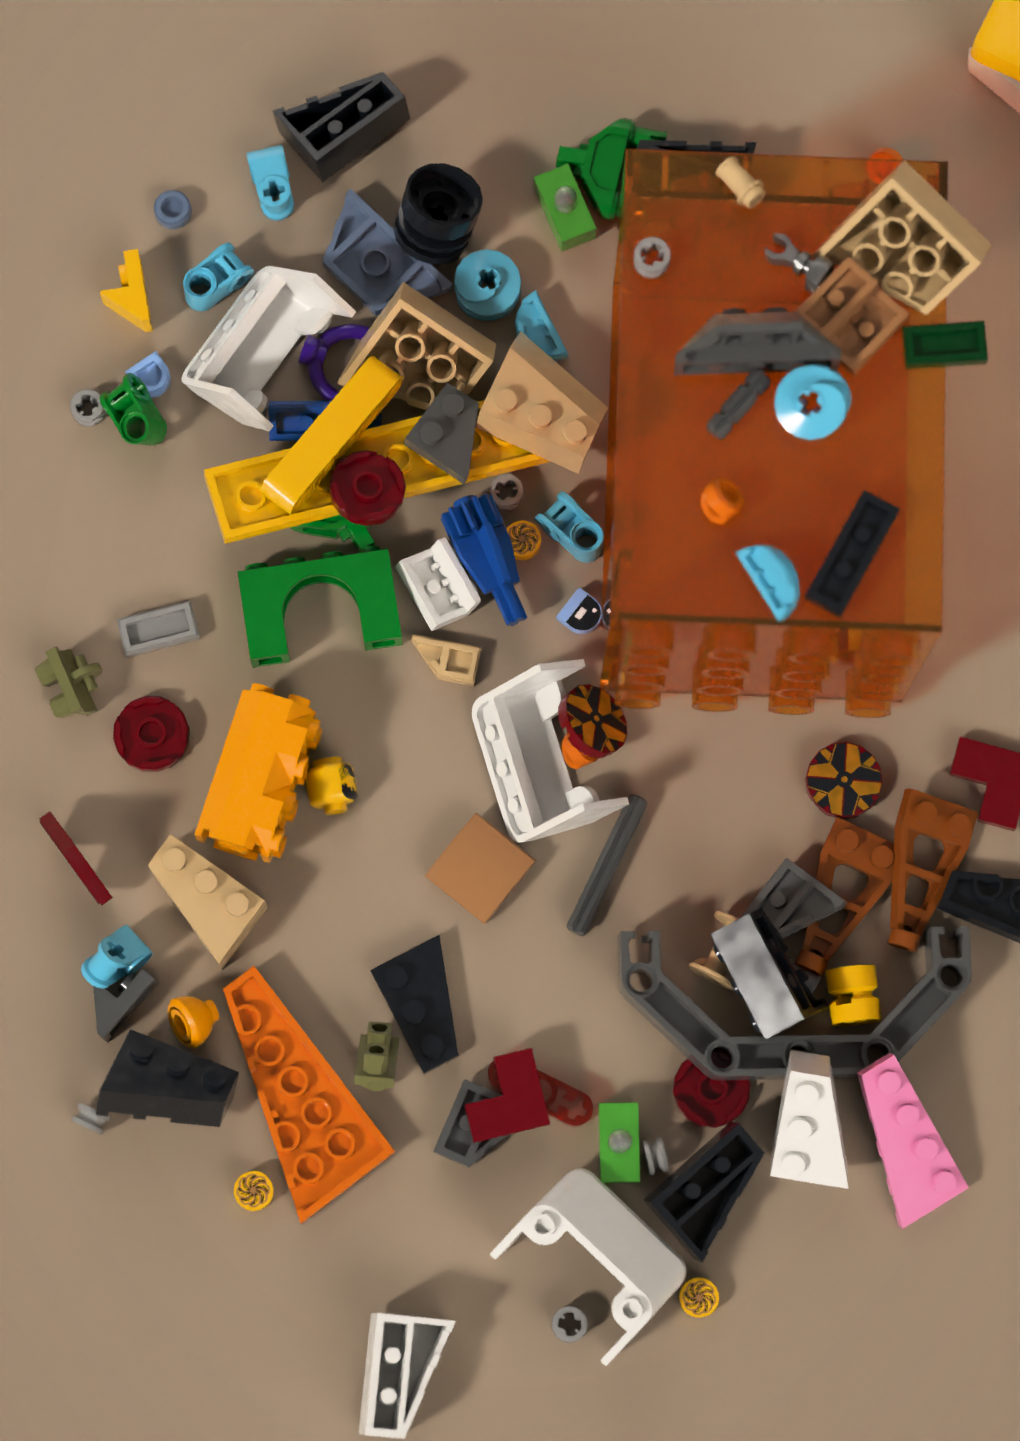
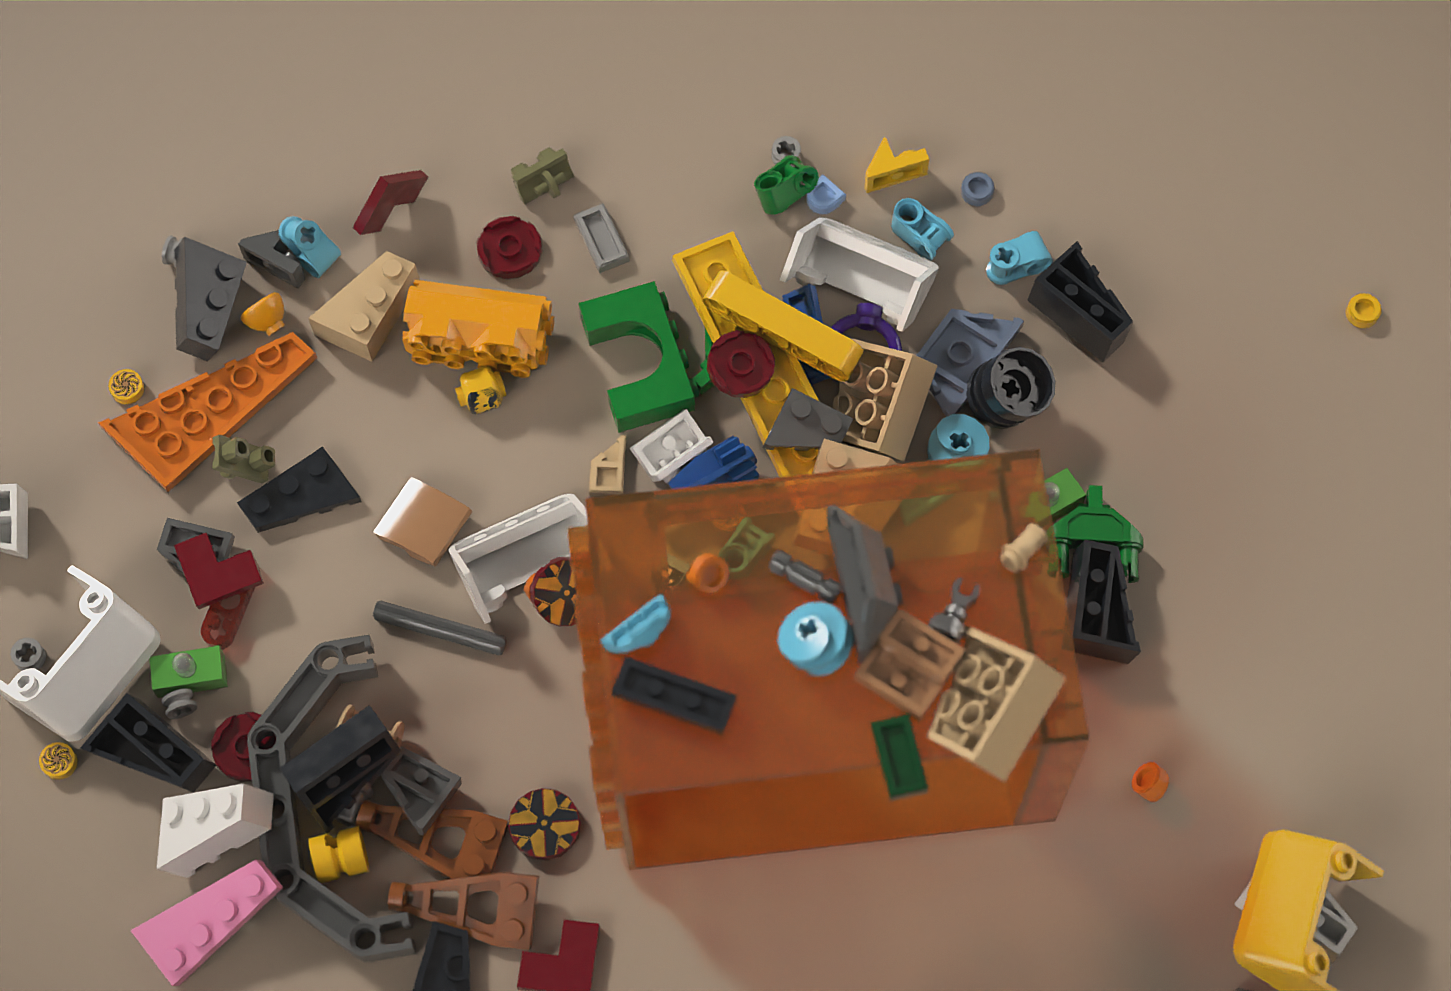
camera: 85 degrees right, 10 degrees down
(646, 246) = (923, 485): light grey bush -> none

